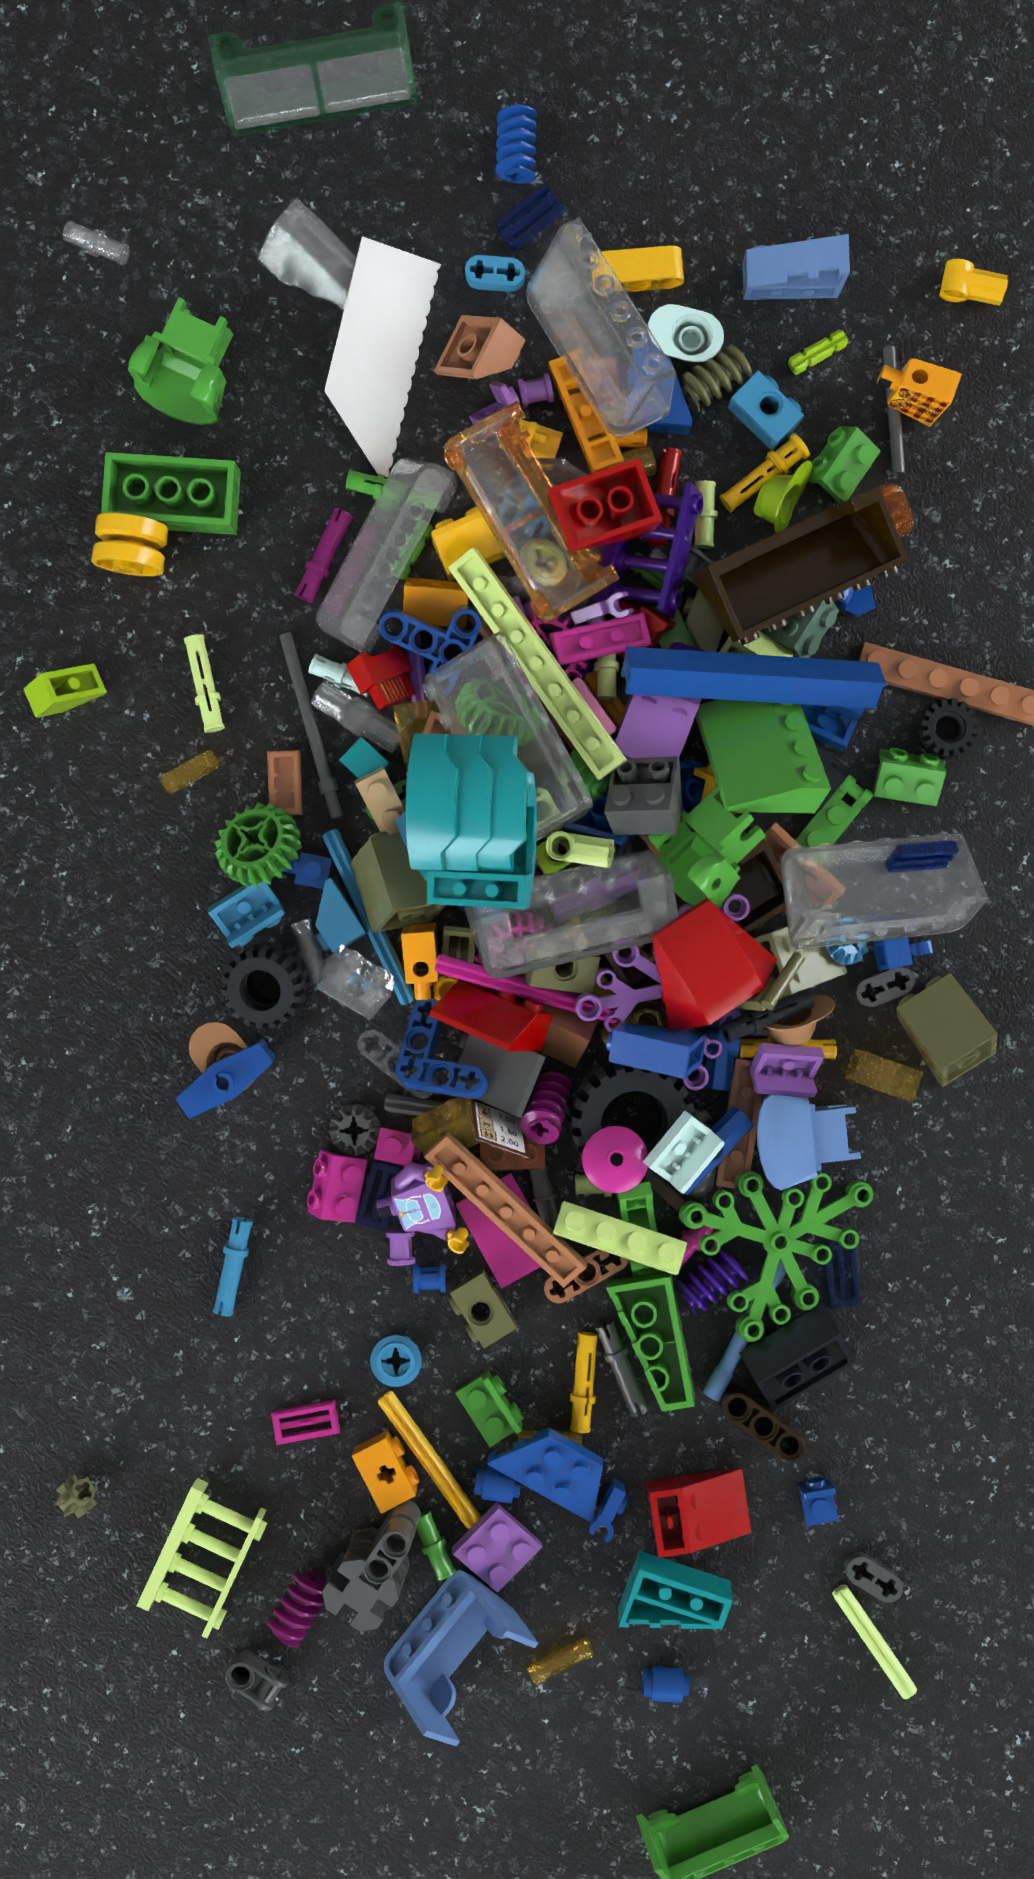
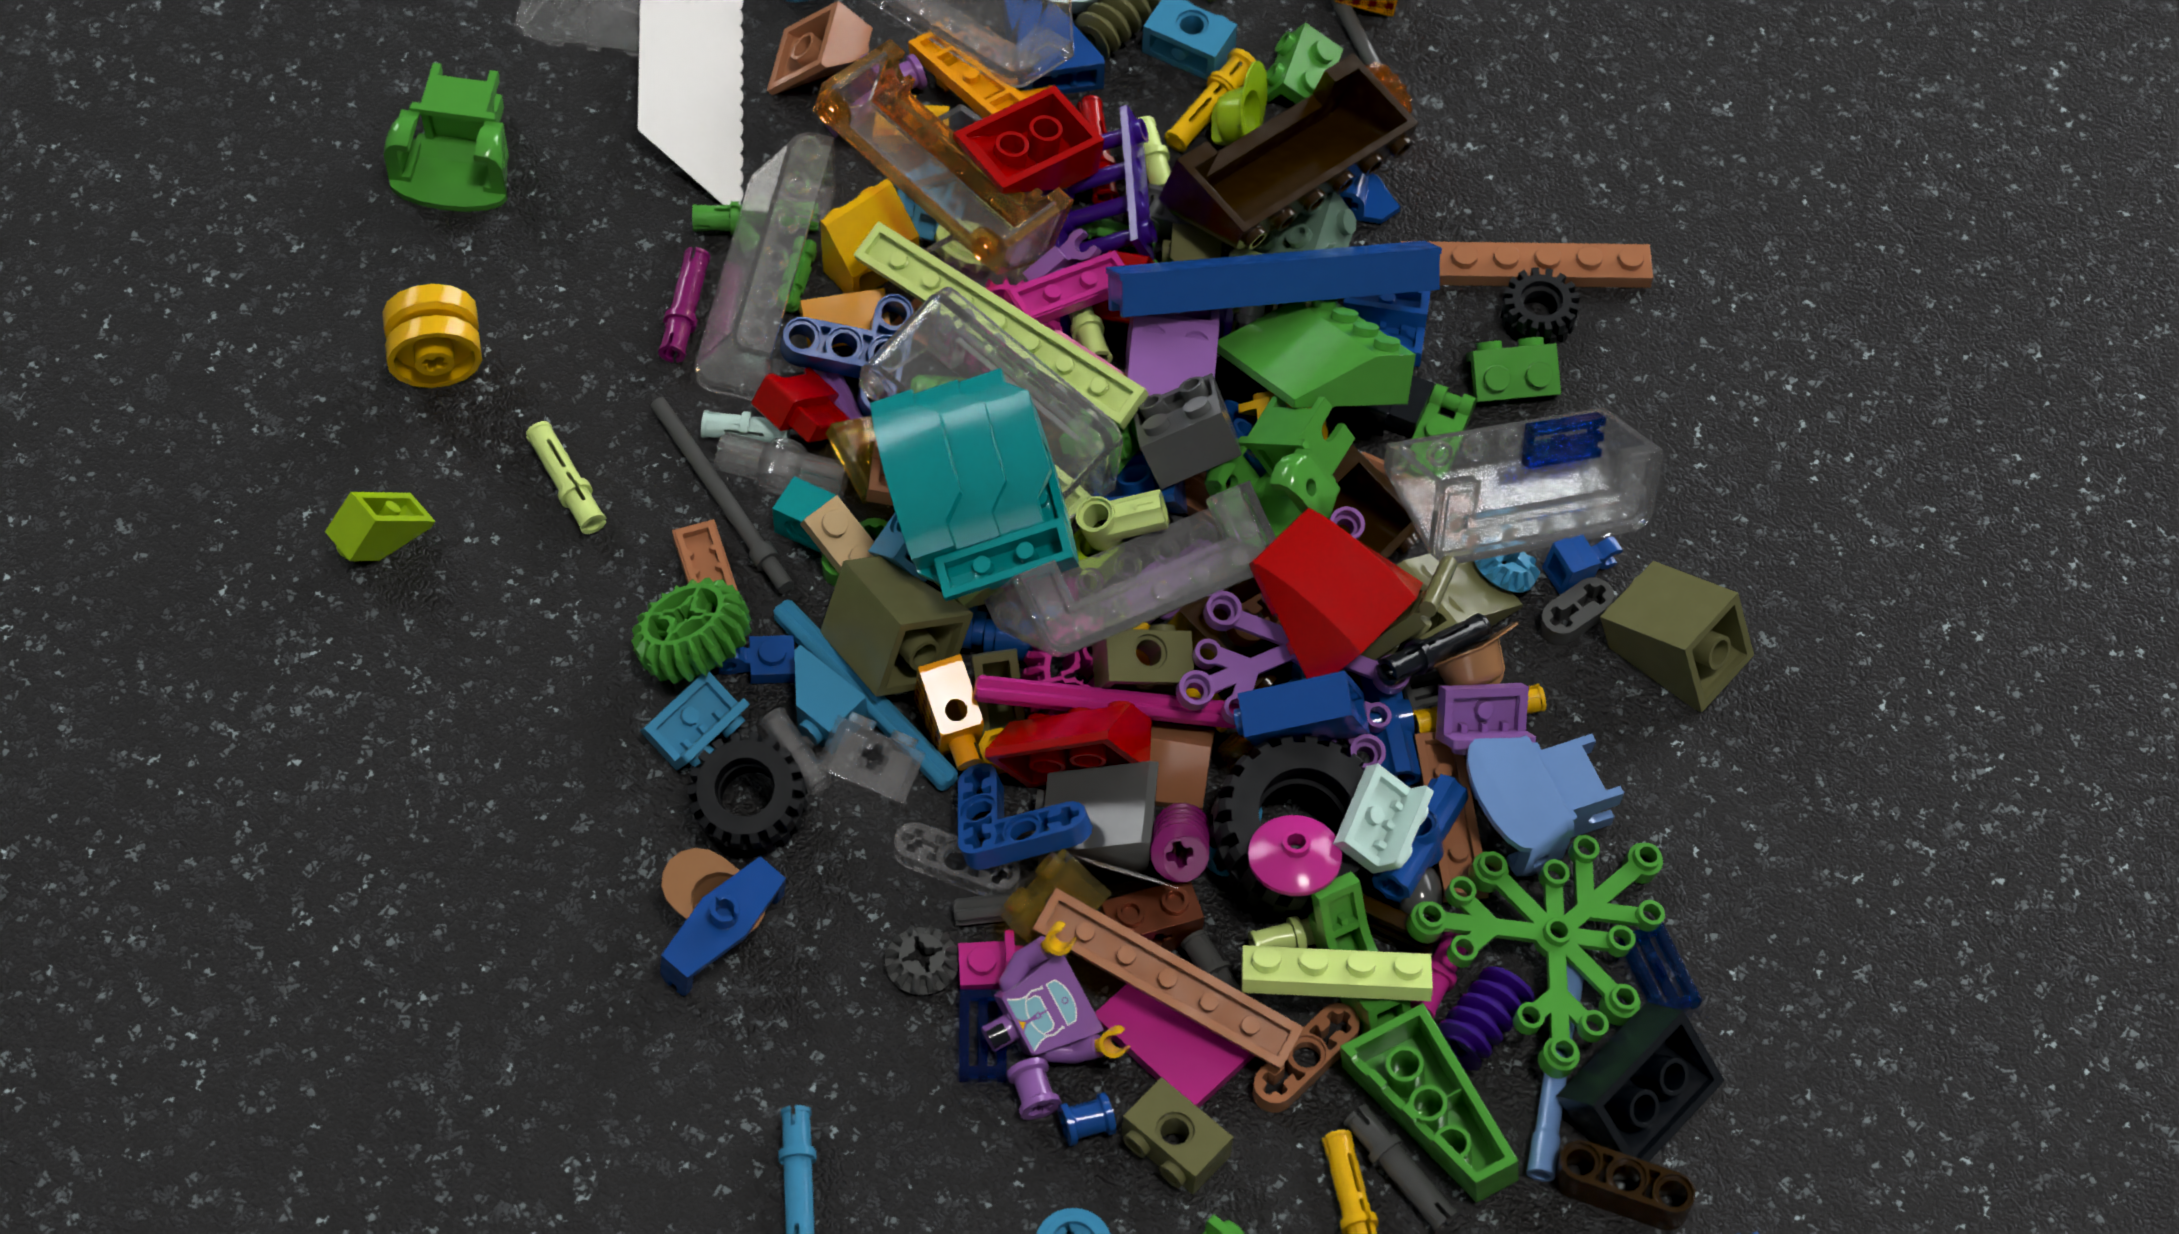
camera: 20 degrees left, 30 degrees down
(96, 242) = (307, 50): clear pin -> none
(174, 491) = (500, 264): bright green brick -> none
(190, 772) = (573, 579): clear yellow beam -> none
(336, 1186) = (918, 1034): dark pink bracket -> none
(883, 1075) = (1616, 705): clear yellow brick -> none

